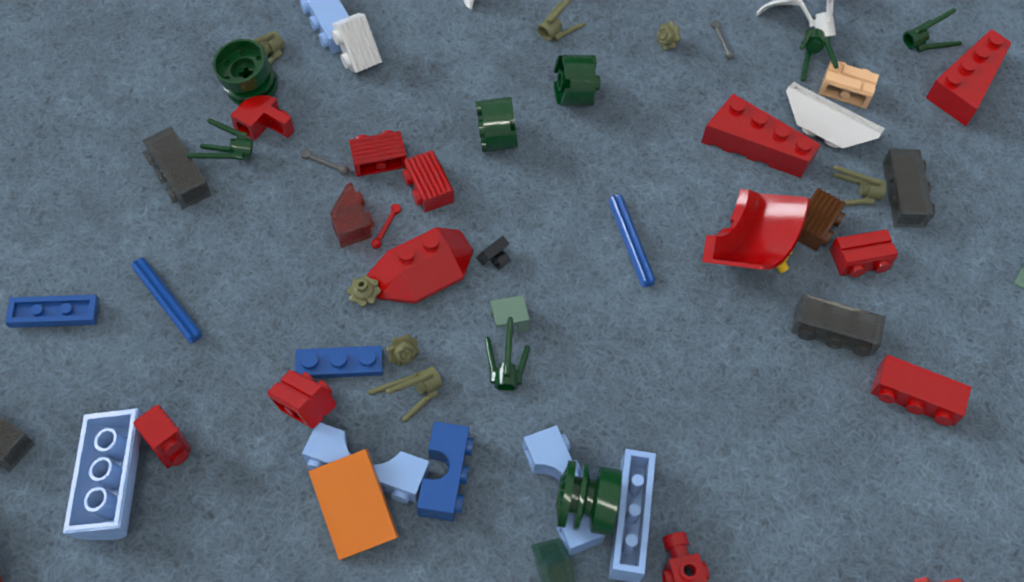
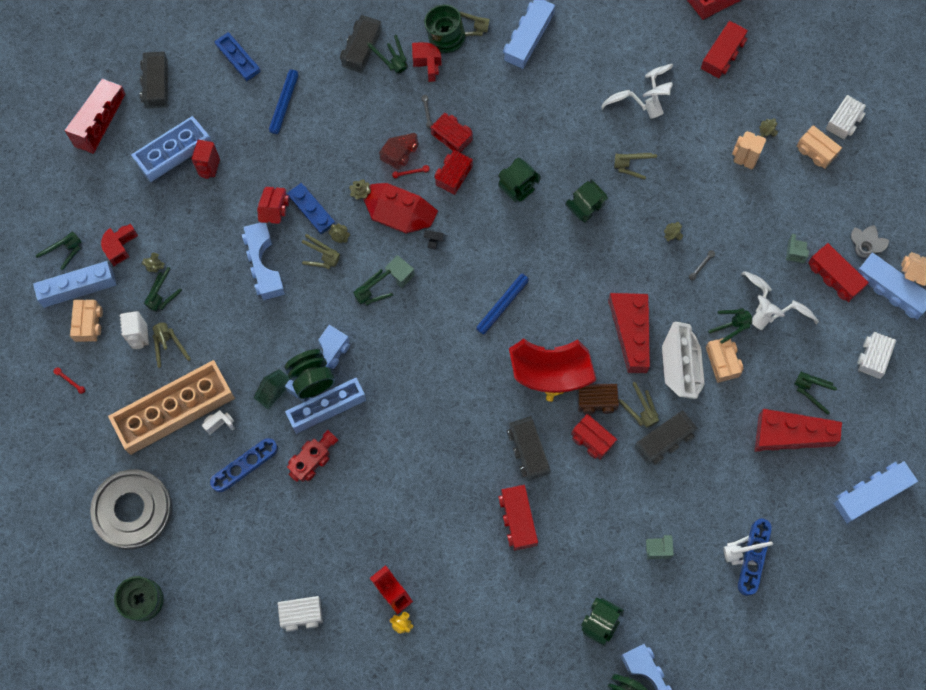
camera: 60 degrees right, 10 degrees up
(353, 504) = (235, 269): orange tile -> none
(356, 43) = (513, 67): white brick -> none
(441, 496) = (273, 309): blue arch -> none

